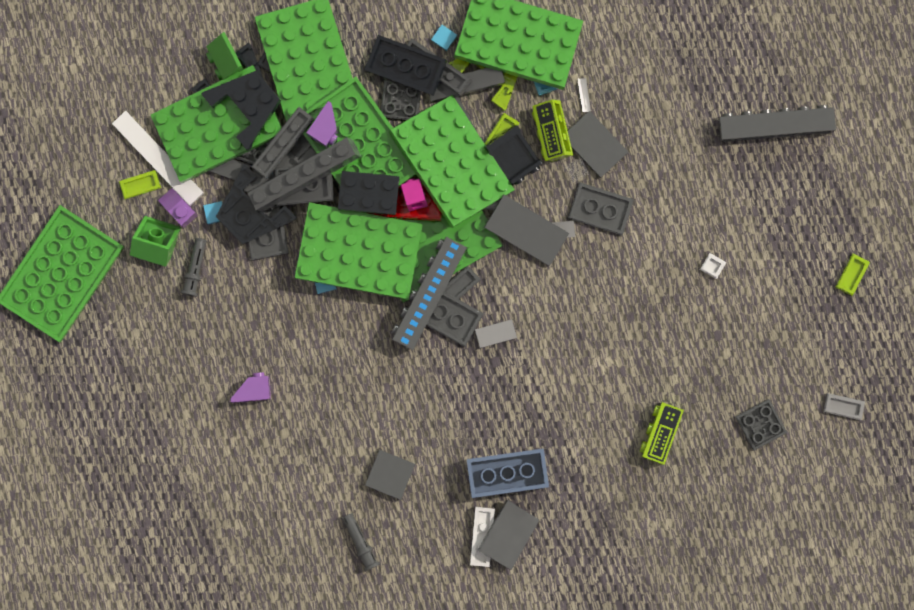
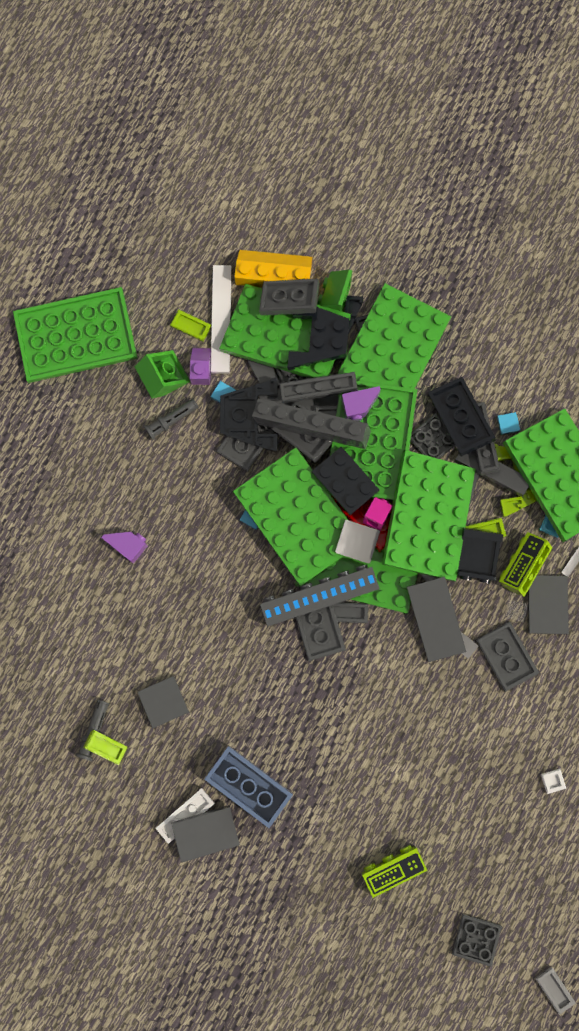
camera: 50 degrees right, 5 degrees down
(161, 84) = (256, 267): none -> yellow slope
(196, 95) = (289, 297): none -> dark grey tile
(380, 545) = (105, 747): none -> lime tile
(418, 228) = (357, 541): none -> light grey sticker
(495, 333) = (340, 673): light grey tile -> none

